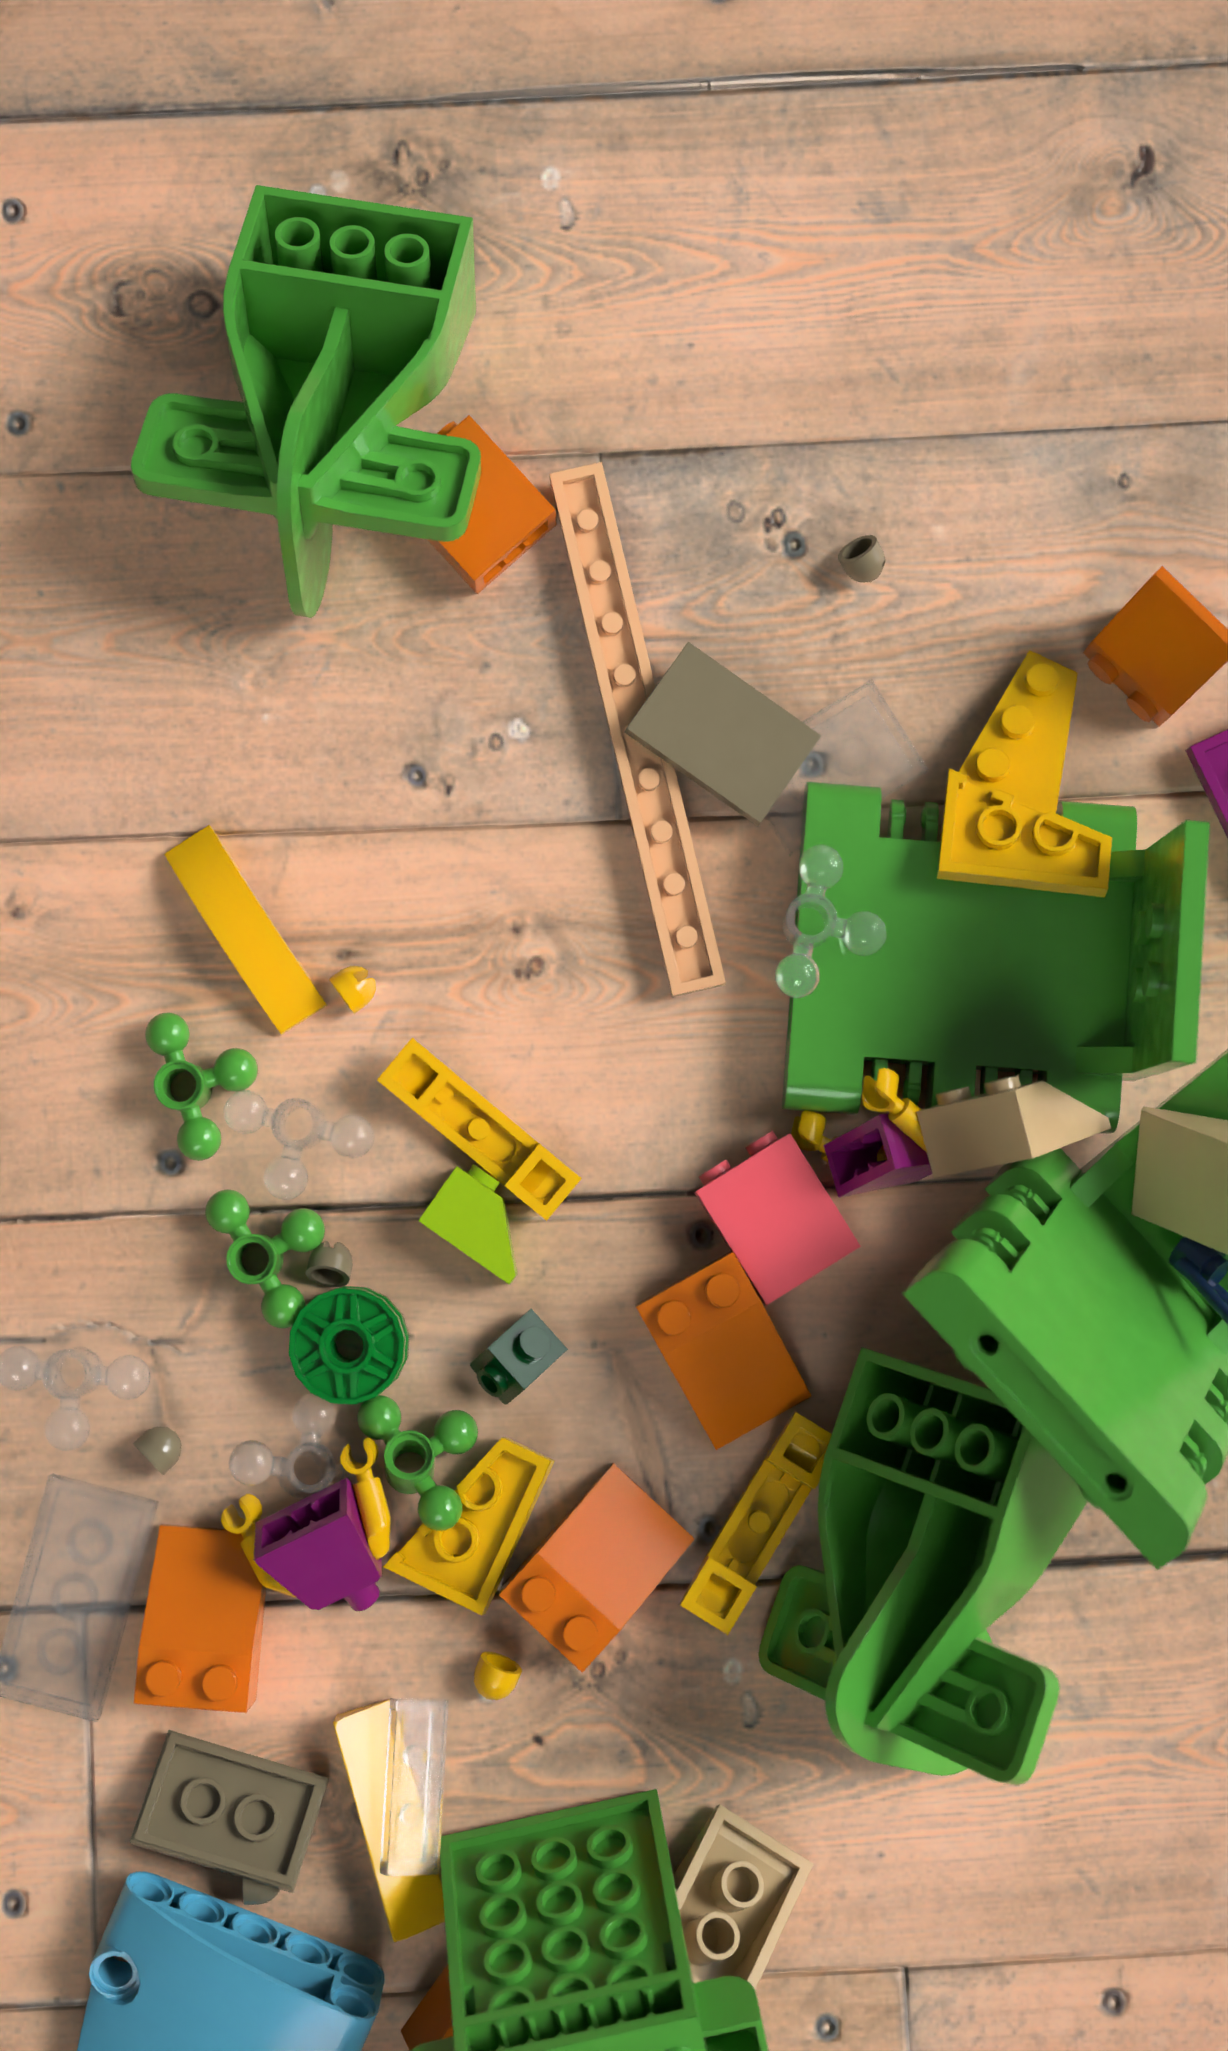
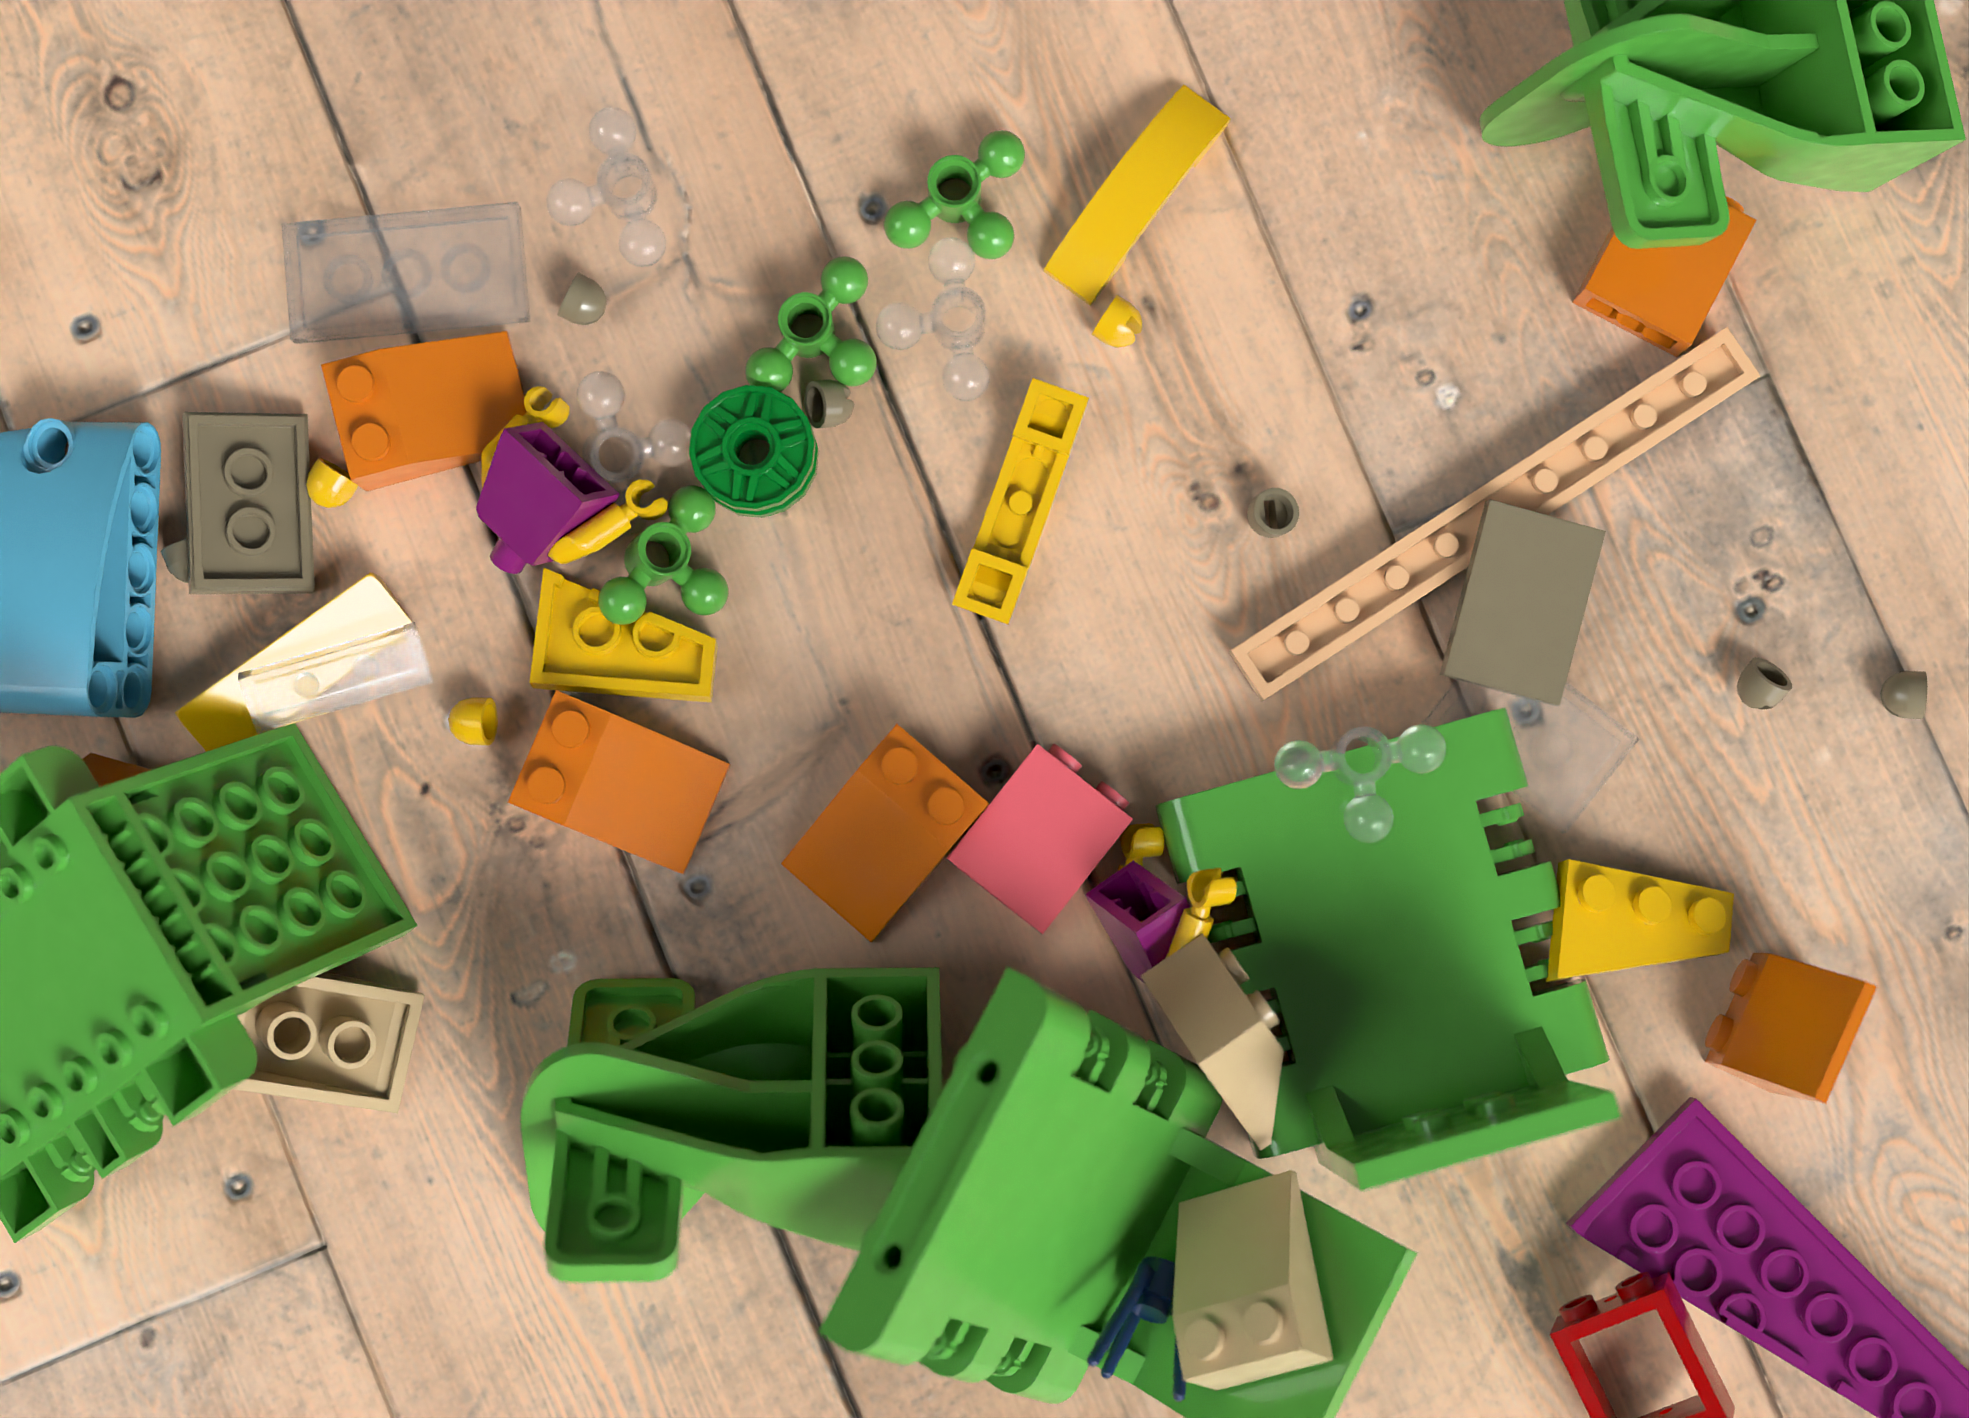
camera: 70 degrees right, 0 degrees up
(239, 1732) = (329, 484): none -> yellow hinge
(474, 1220) = (925, 531): lime slope -> none
(517, 1358) = (802, 626): bracket -> none
(569, 907) = (1282, 513): none -> dark tan hinge
(757, 1524) = (717, 931): yellow slope -> none
(913, 444) = (1905, 694): none -> dark tan hinge
(1012, 845) = (1520, 944): yellow wing -> none

